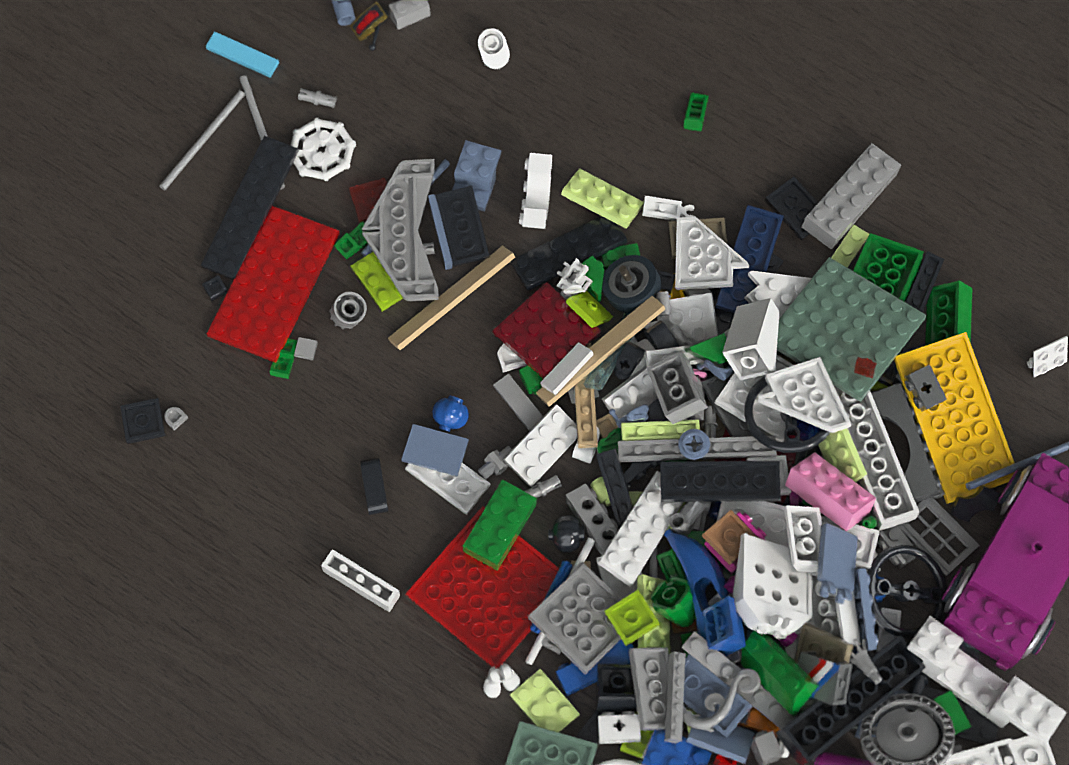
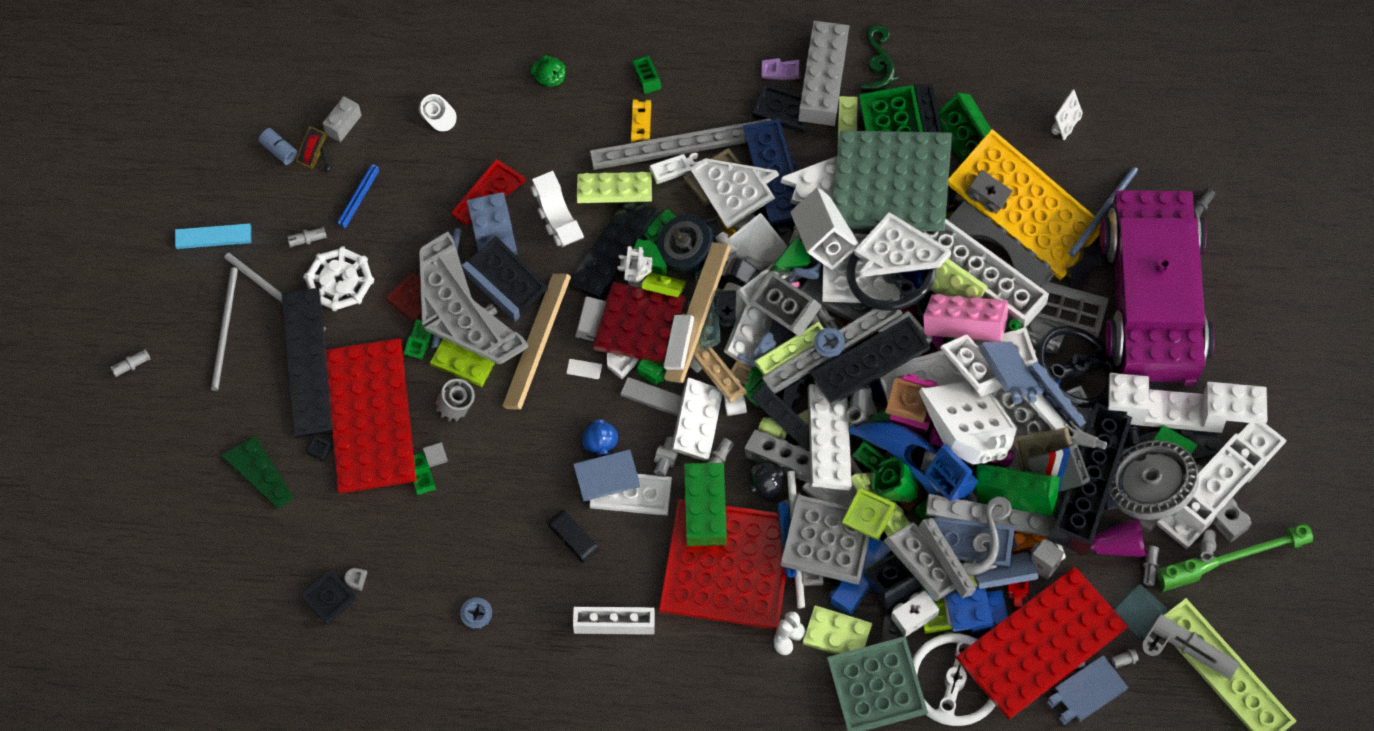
camera: 30 degrees left, 5 degrees down
(108, 127) = (130, 363): none -> light grey pin
(154, 277) = (257, 468): none -> dark green wing
(253, 497) = (471, 606): none -> sand blue gear
(382, 85) = (358, 196): none -> blue axle
(477, 344) = (584, 369): none -> white sticker
(507, 137) = (495, 180): none -> red wing
(508, 302) = (590, 318): none -> light grey hinge
(607, 58) = (544, 70): none -> green hair
(664, 151) = (641, 121): none -> yellow plate
(675, 187) = (669, 146): none -> light grey plate
(815, 171) = (779, 70): none -> lavender slope
(865, 367) = (932, 199): clear red plate -> none
(906, 210) = (875, 61): none -> dark green plant

